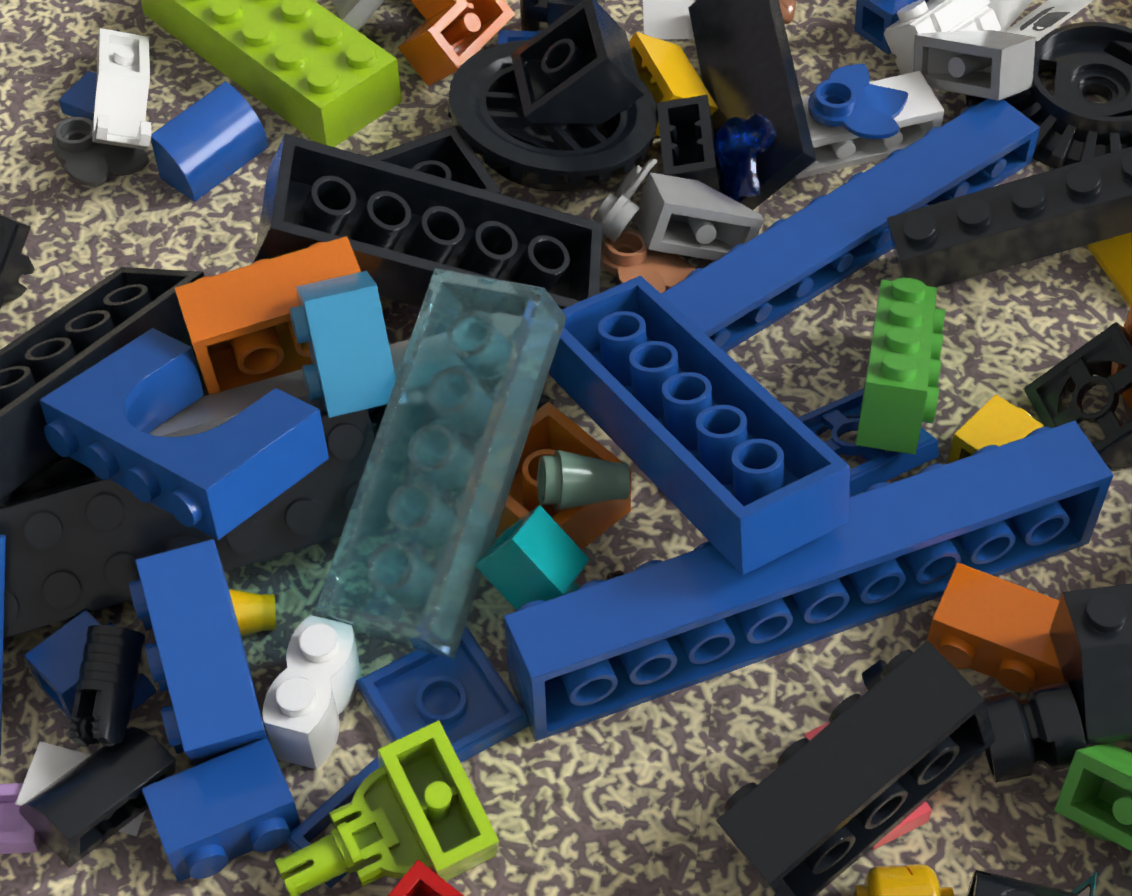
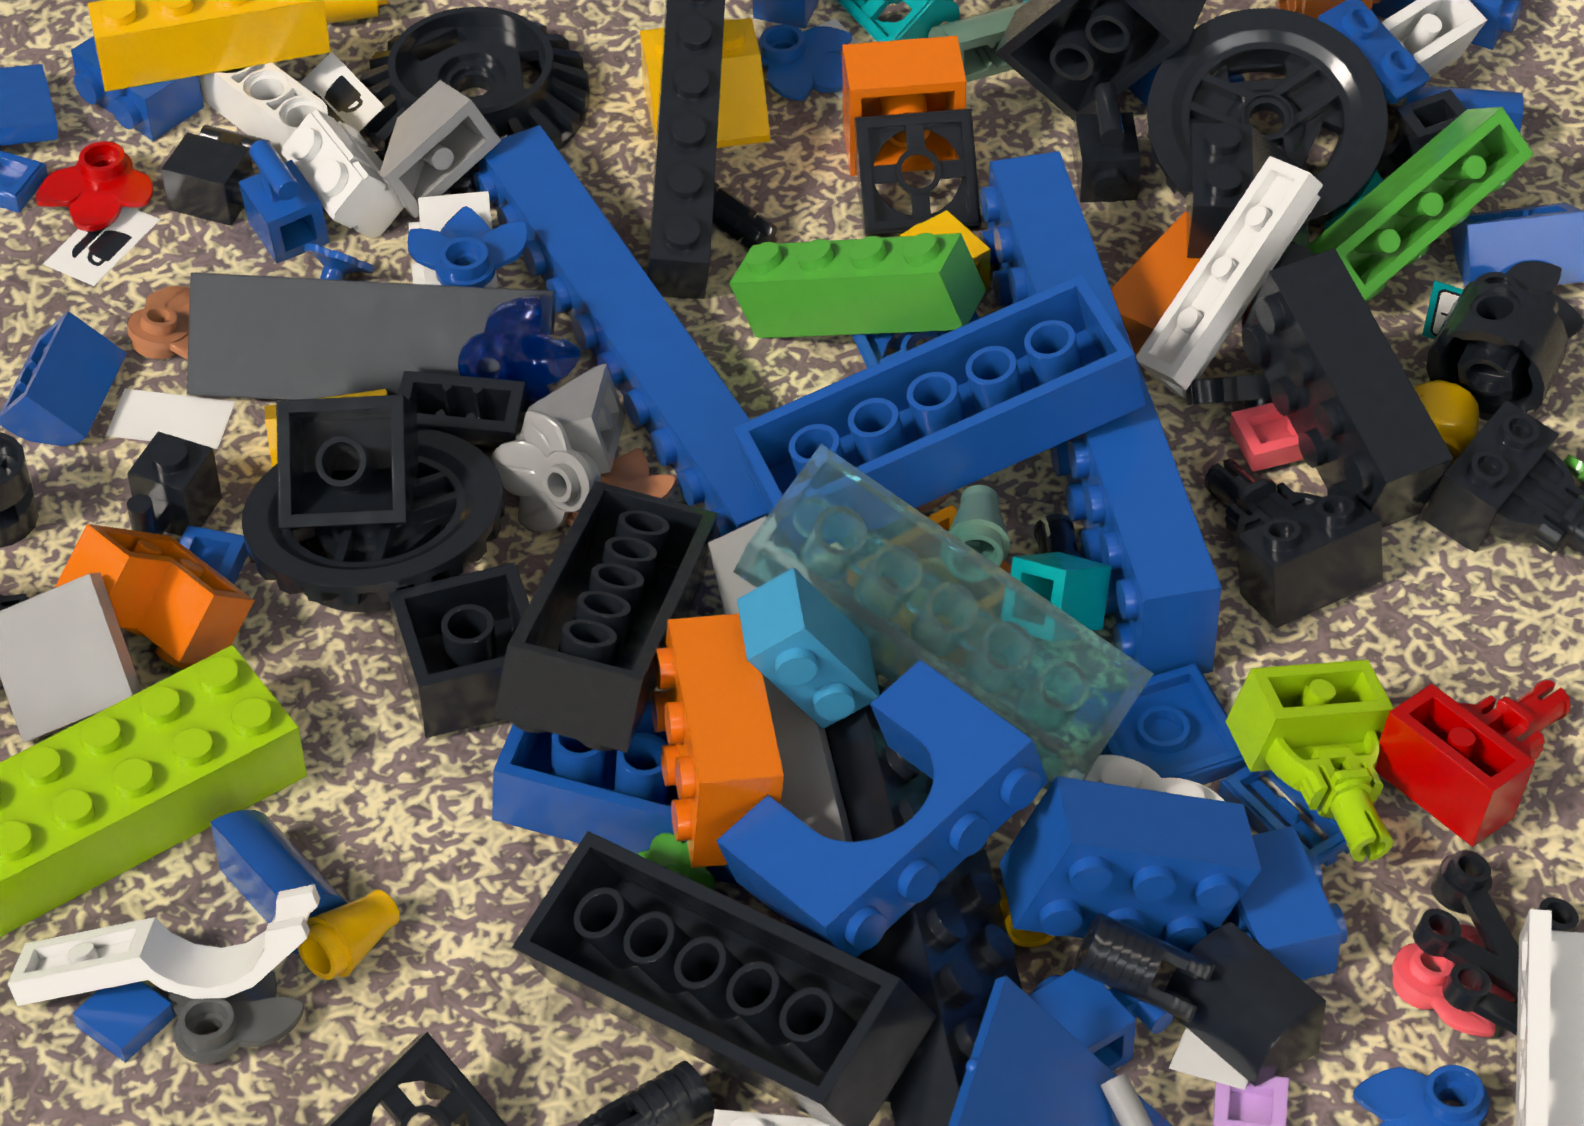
camera: 80 degrees left, 5 degrees down
(161, 191) = (347, 934): none -> yellow cone
(680, 774) = (1296, 546): none -> black brick
(849, 48) = (336, 263): none -> blue plant
(1008, 293) = (739, 221): none -> black axle
(1013, 647) = (1229, 274): none -> white fence

